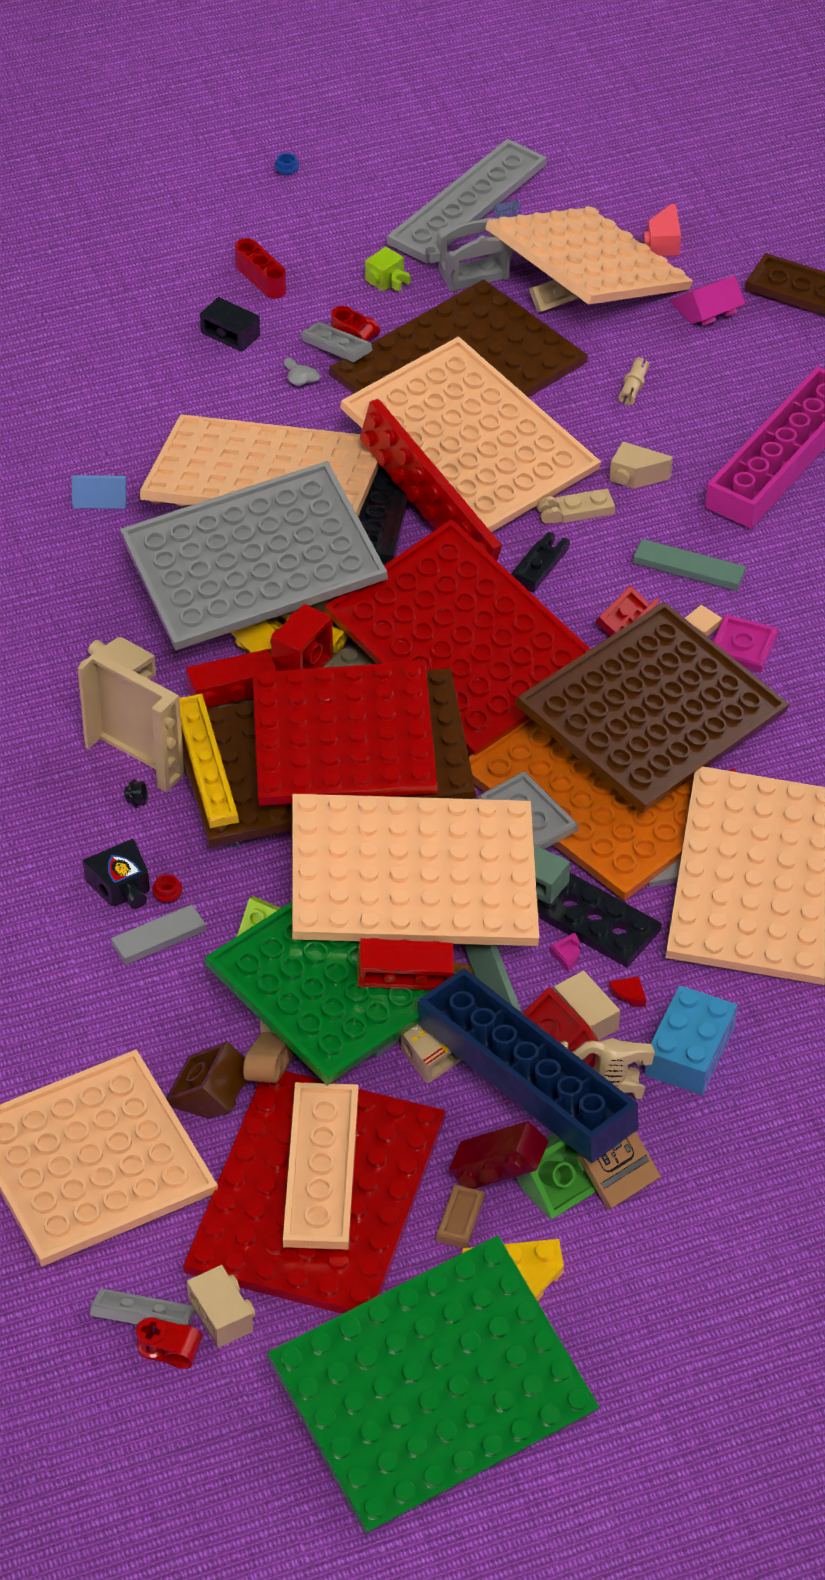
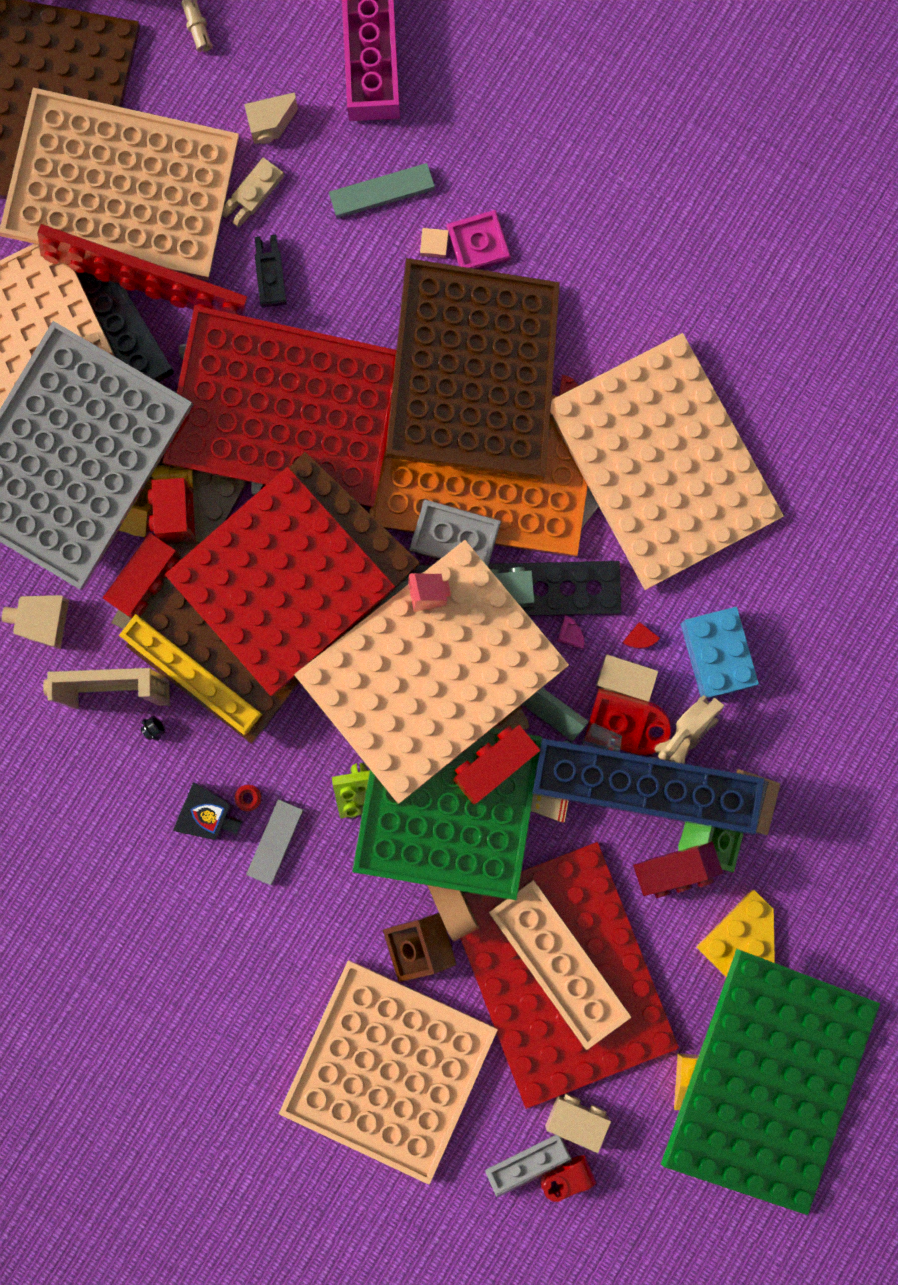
camera: 35 degrees left, 35 degrees up
(460, 794) = (428, 591): none -> coral slope
(460, 1216) = (673, 920): medium nougat tile -> none
(624, 610) = (378, 280): red bracket -> none

